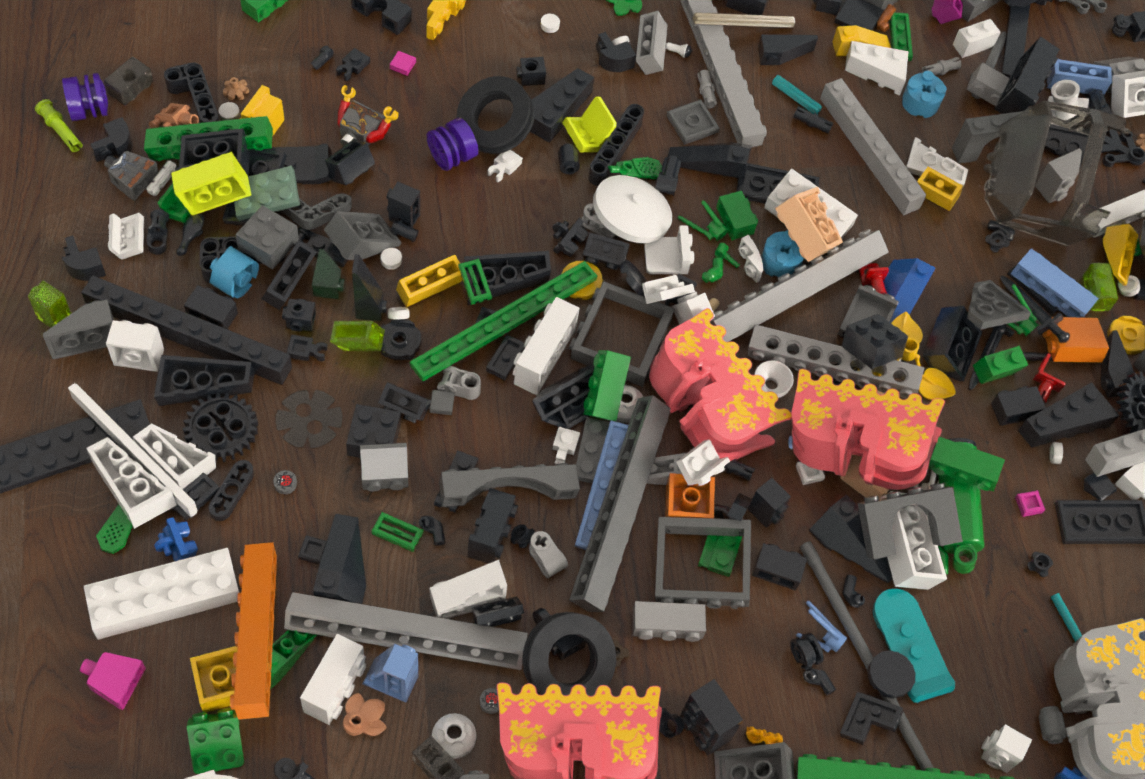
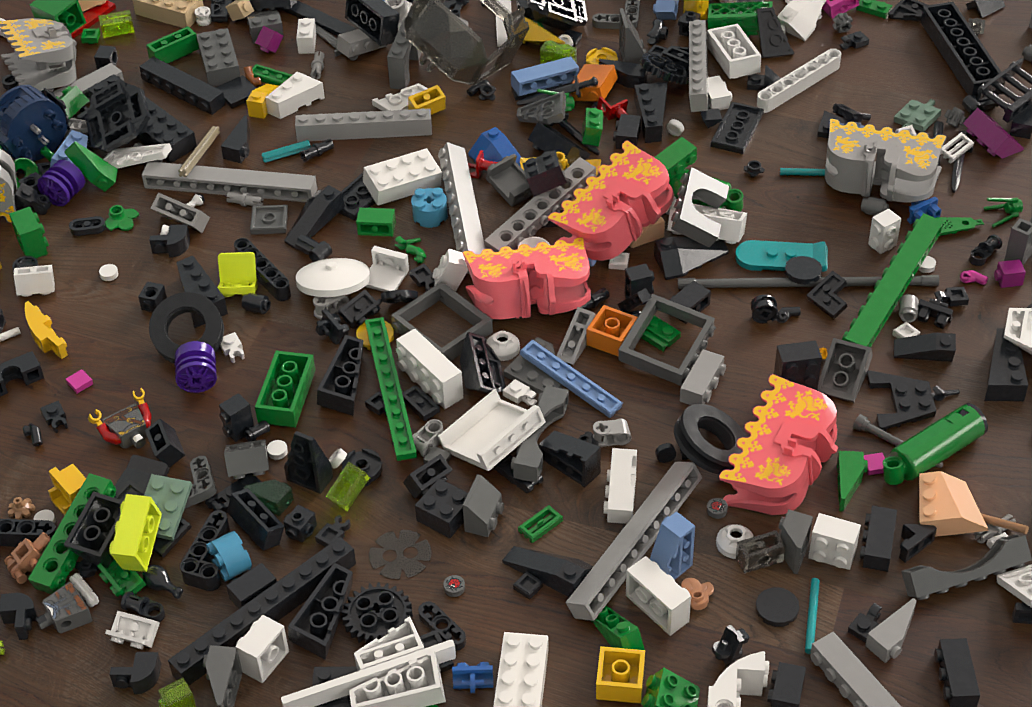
camera: 55 degrees left, 15 degrees down
(255, 632) = (595, 626): orange brick -> none
(267, 237) = (213, 514): dark grey brick -> none
(429, 281) = (322, 422): yellow brick -> none
(434, 527) = (550, 497): black arm -> none
(463, 230) = (285, 388): none -> green brick
(480, 297) = (345, 392): green tile -> none
(486, 436) = (490, 431): none -> white panel
(498, 612) = (648, 474): black bracket -> none
(606, 385) = (490, 339): brick -> none
(620, 505) = (595, 369): dark grey brick -> none
(638, 167) = (293, 263): green piece -> none
(665, 288) = (424, 281): white bracket -> none
(701, 463) = (593, 304): white bracket -> none
(716, 227) = (379, 237): green plant -> none
(753, 265) = (426, 226): white slope -> none
(809, 224) = (423, 172): light nougat wedge -> none
(833, 638) = (754, 291): medium blue plant -> none
(849, 593) = (724, 273): black arm -> none
(923, 94) = (338, 81): dark azure brick -> none
(1030, 503) = (705, 157): dark pink tile -> none

